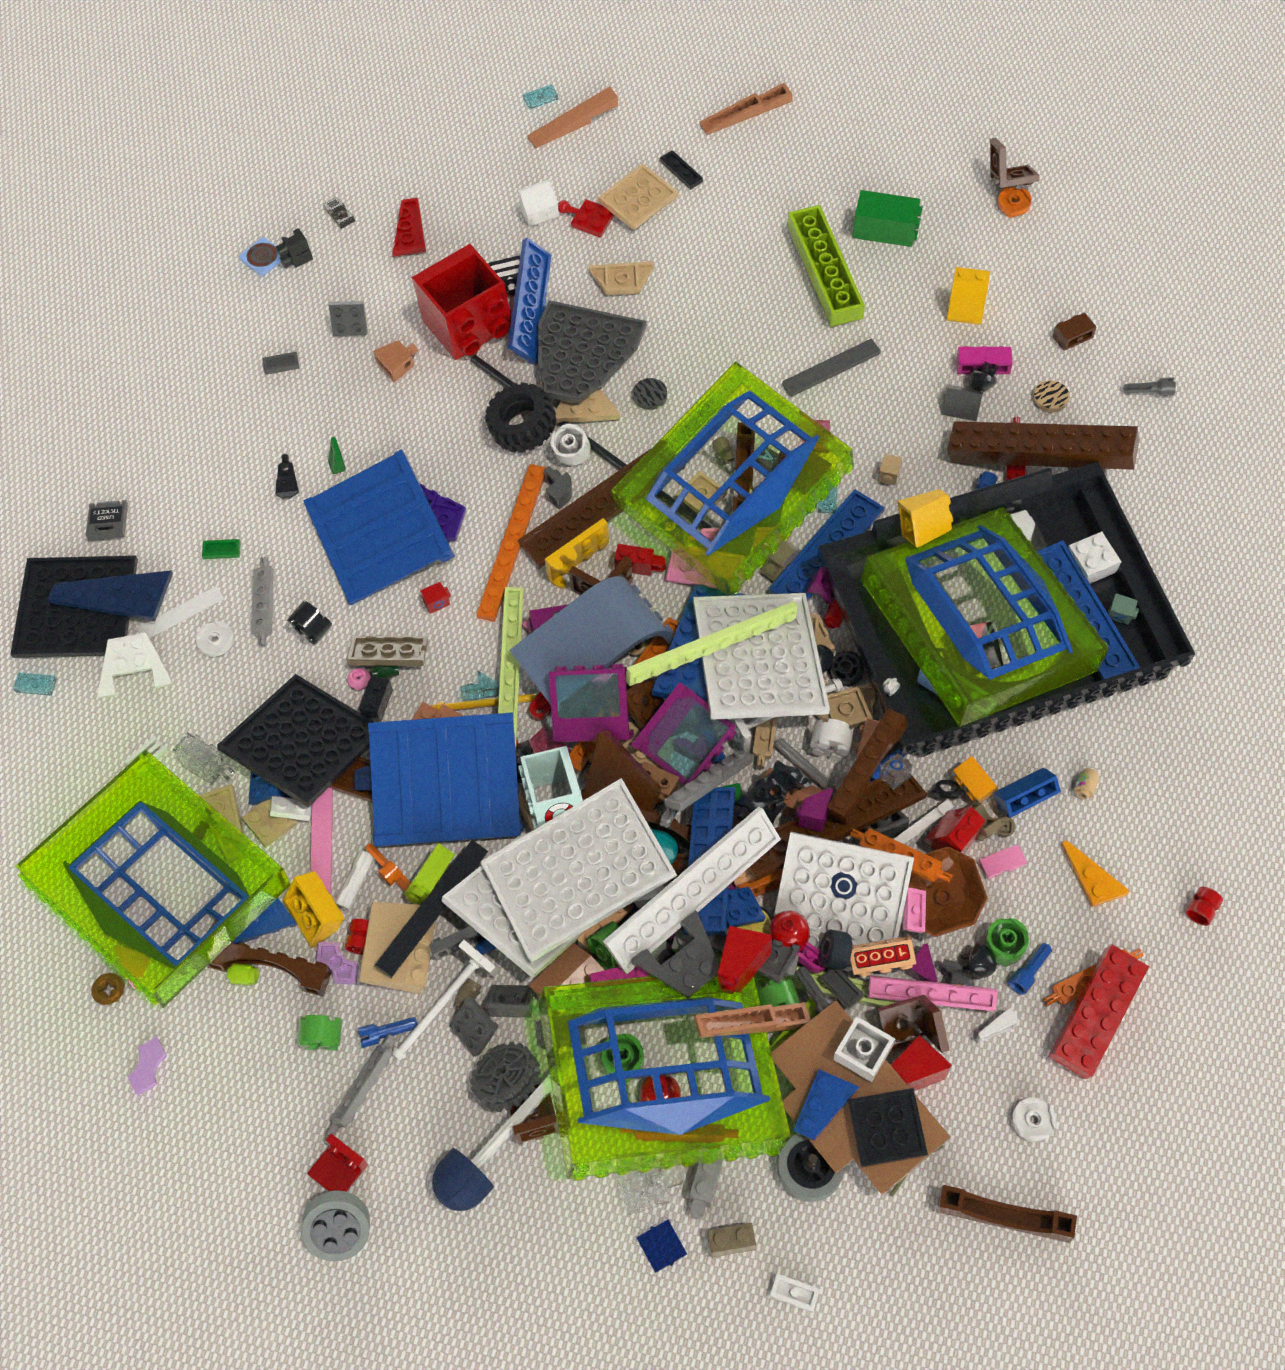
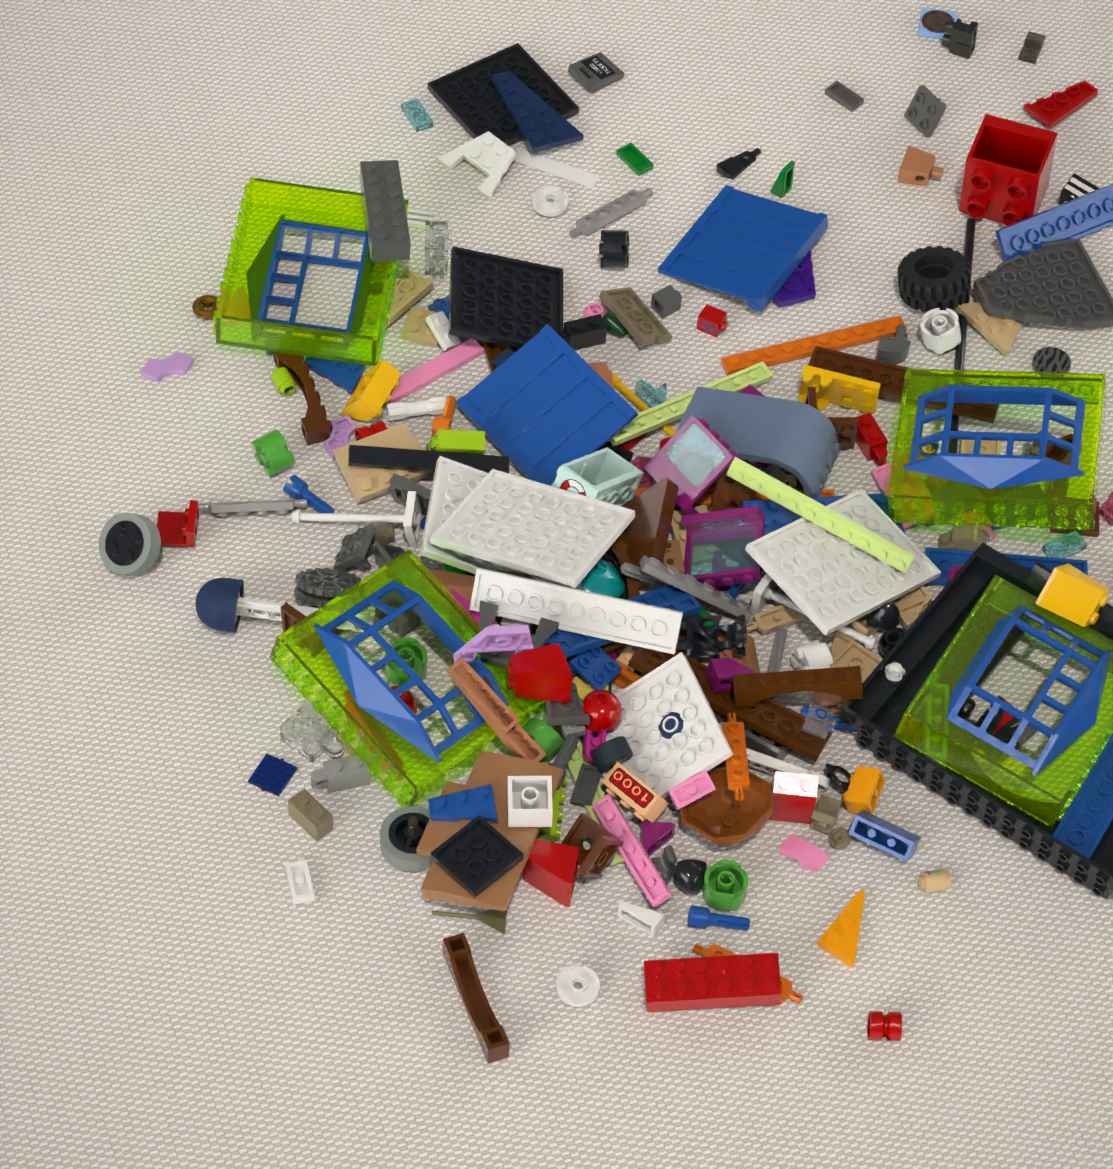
camera: 50 degrees right, 10 degrees down
(147, 776) = (384, 210): none -> dark grey brick
(390, 618) = (666, 301): none -> dark grey brick
(706, 980) = (495, 639): none -> lavender wing

